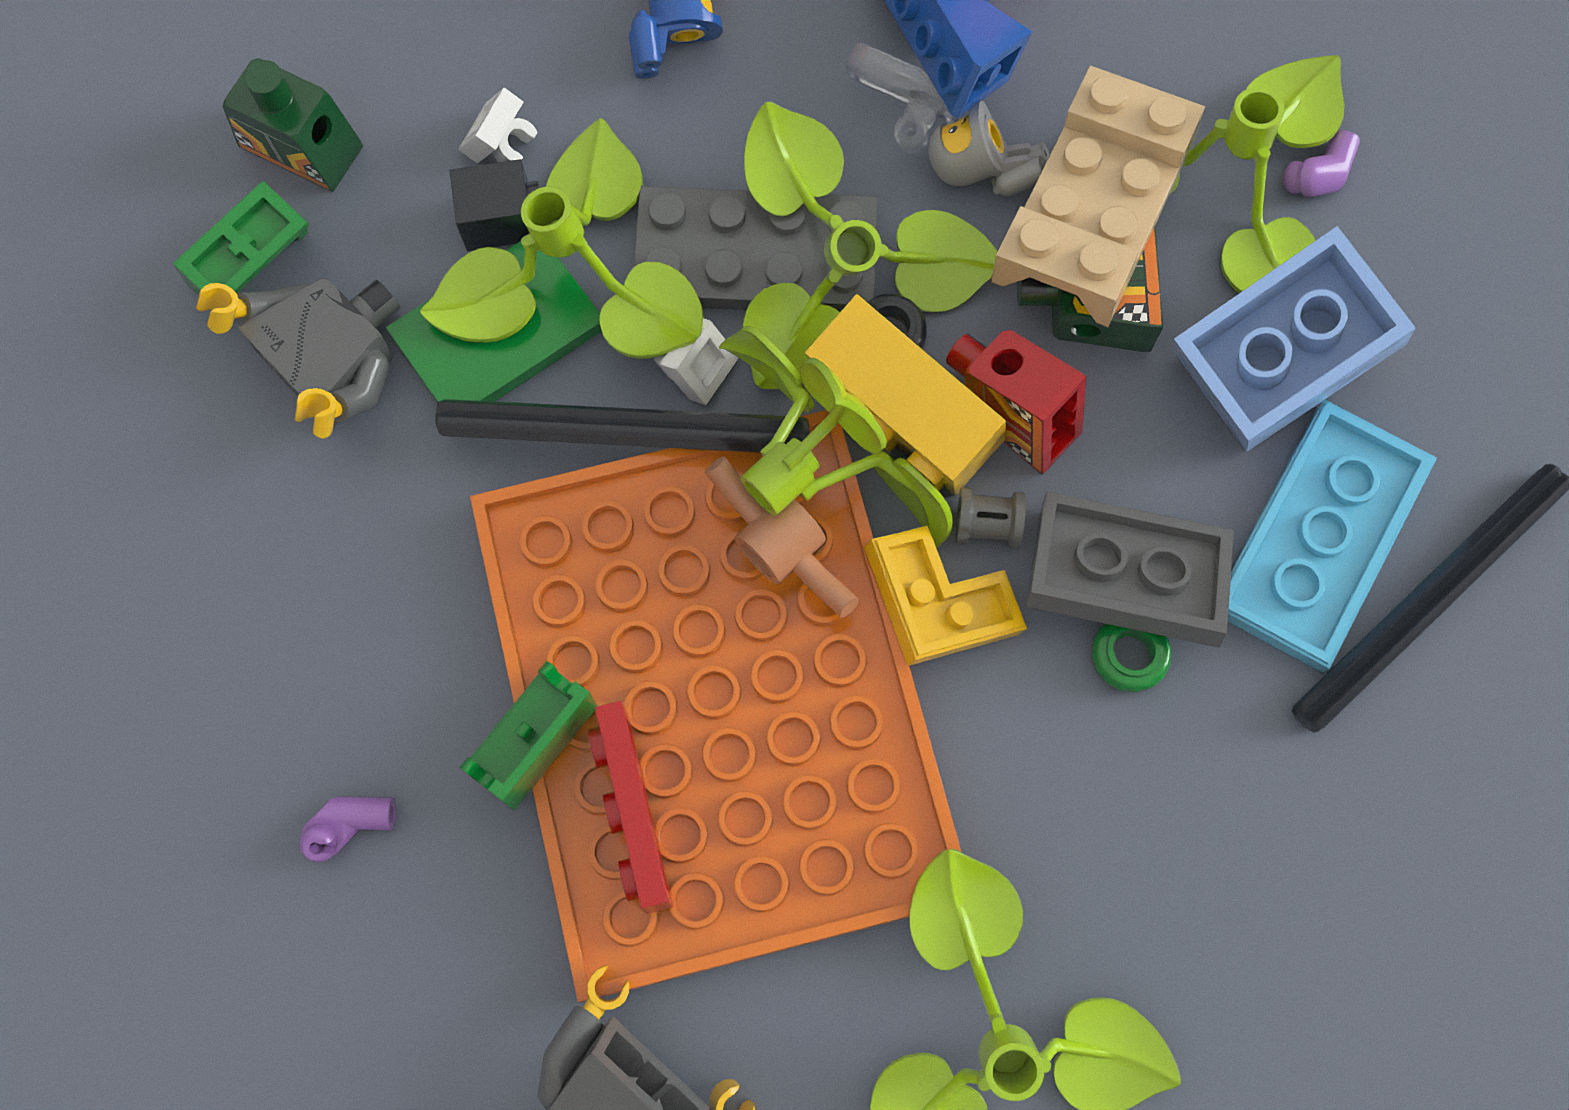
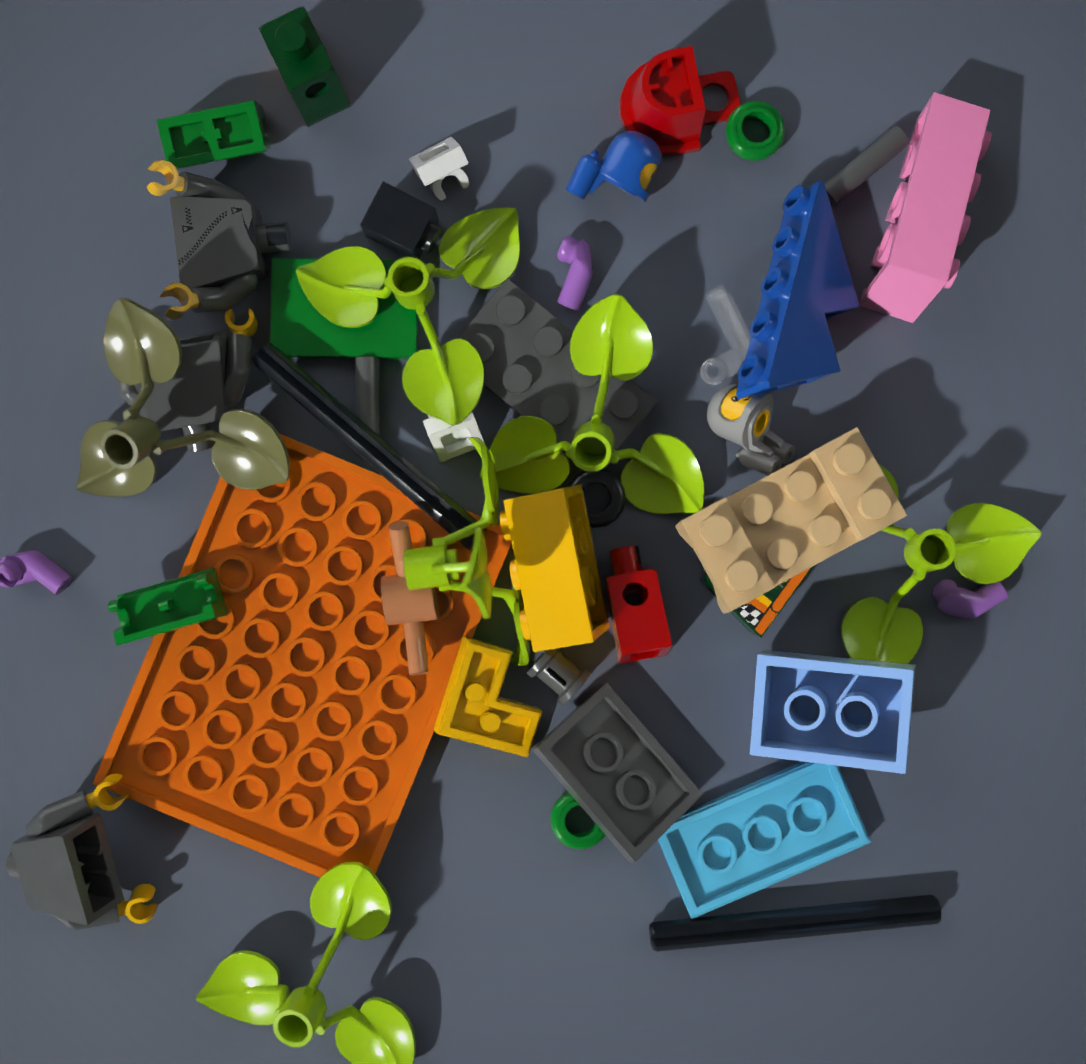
camera: 30 degrees right, 15 degrees up
(310, 473) = (118, 454): none -> olive plant
(377, 498) = (207, 383): none -> dark grey torso
(578, 388) = (368, 391): none -> dark grey piece
(629, 809) = (196, 700): red plate -> none
(707, 133) = (580, 272): none -> medium lavender arm

